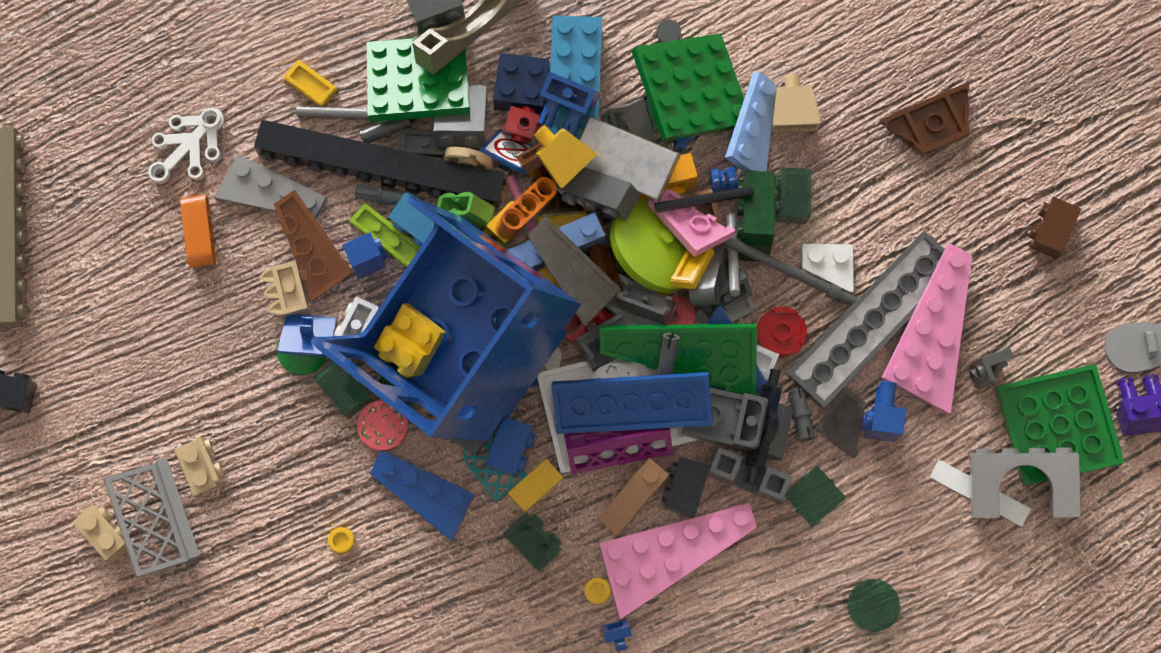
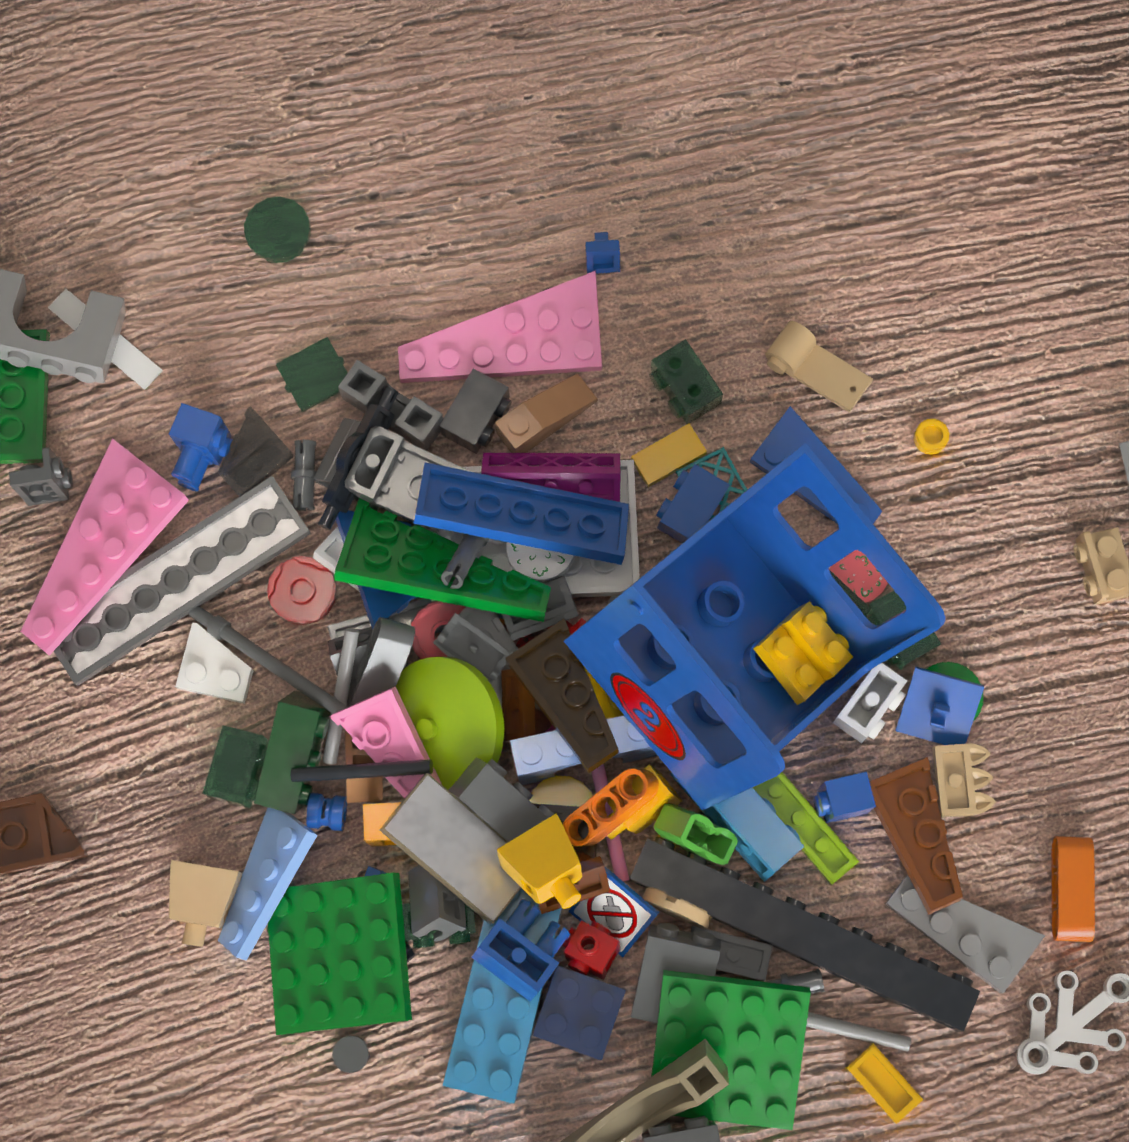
camera: 165 degrees left, 0 degrees up
(378, 194) = (809, 891): dark grey axle -> none
(435, 575) = (804, 360): none -> tan door
(597, 591) = (616, 312): yellow tile -> none
(691, 269) = (404, 671): yellow tile -> none

